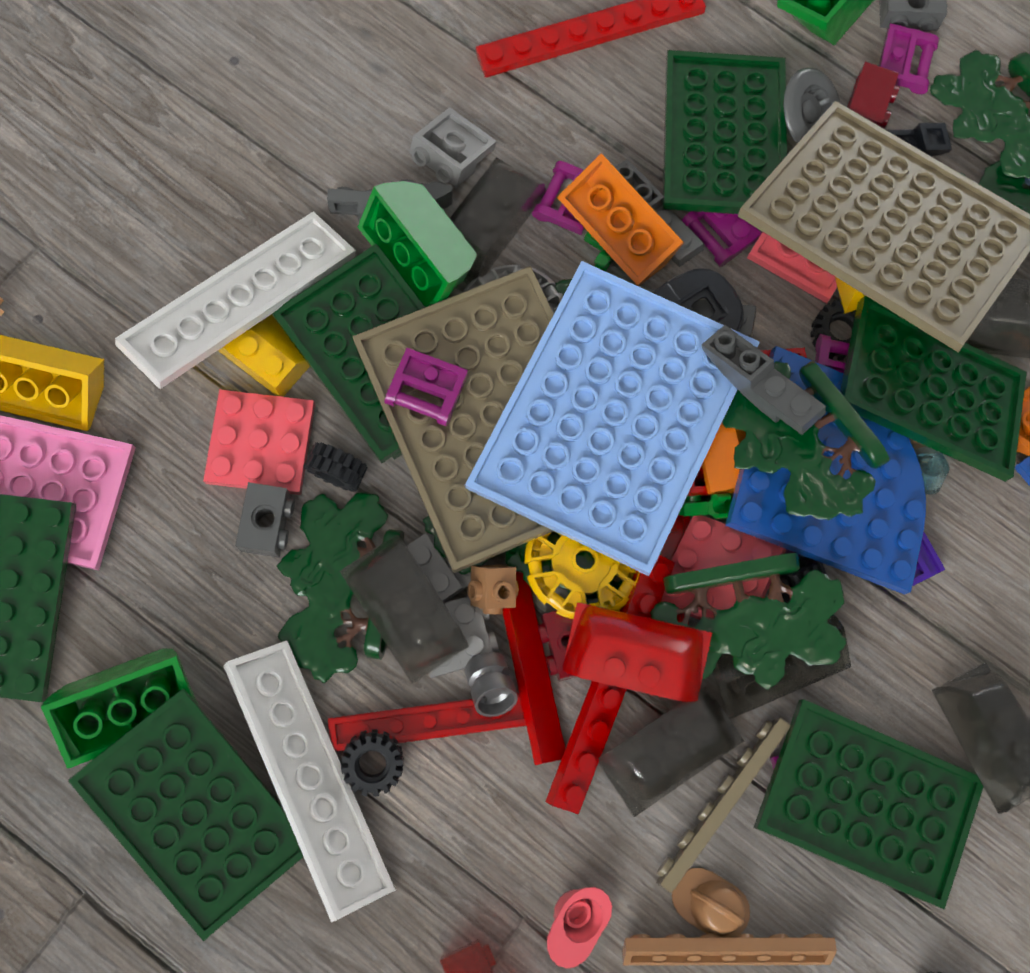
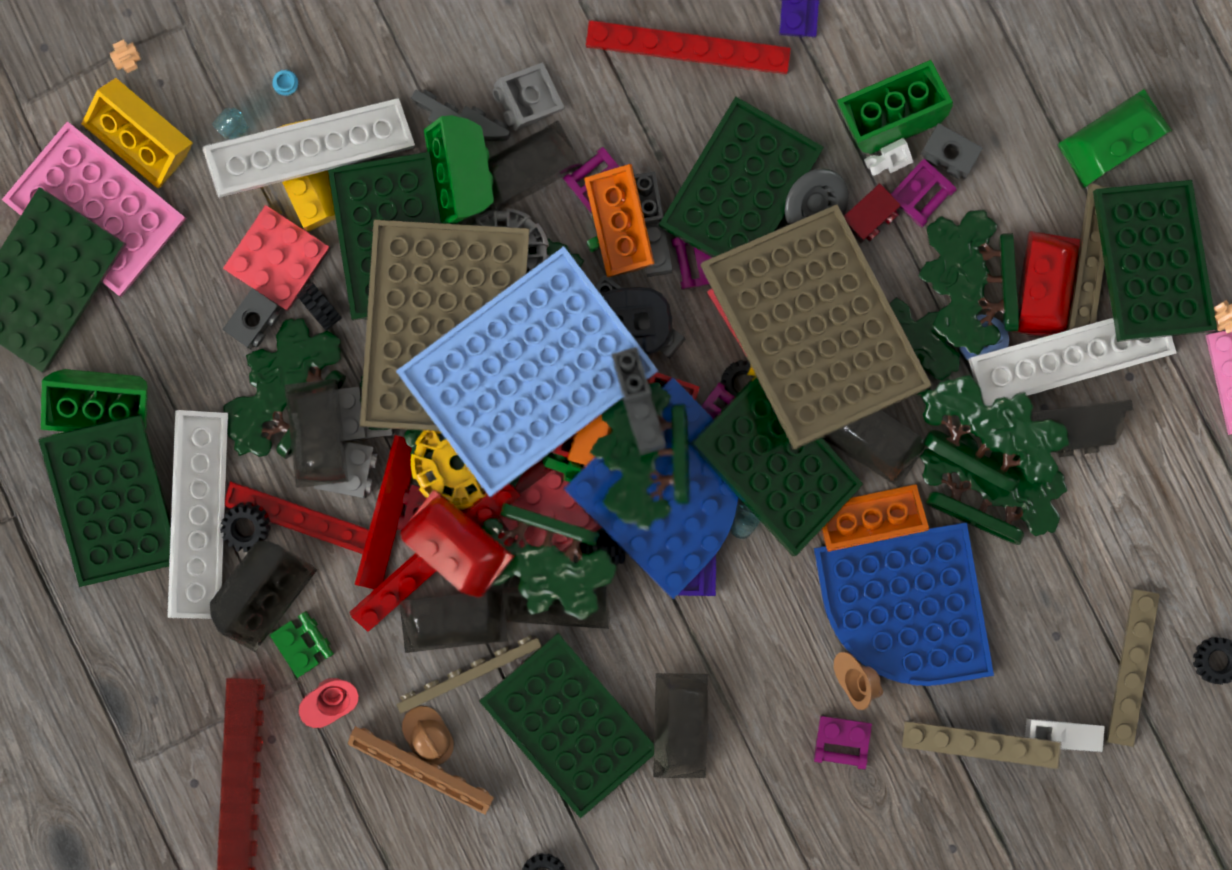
camera: 35 degrees right, 10 degrees up
(133, 314) = (230, 123): none -> clear light blue plate
(179, 253) = (285, 82): none -> medium azure plate
(428, 834) = (259, 593): none -> clear smoke windscreen
(429, 376) = (412, 279): magenta plate -> none
(490, 684) = (351, 514): flat silver wheel -> none
(493, 588) = (384, 449): medium nougat brick -> none
(503, 881) = (294, 647): none -> green plate
(860, 37) = (893, 158): none -> white plate
(927, 137) = (891, 265): black slope -> none

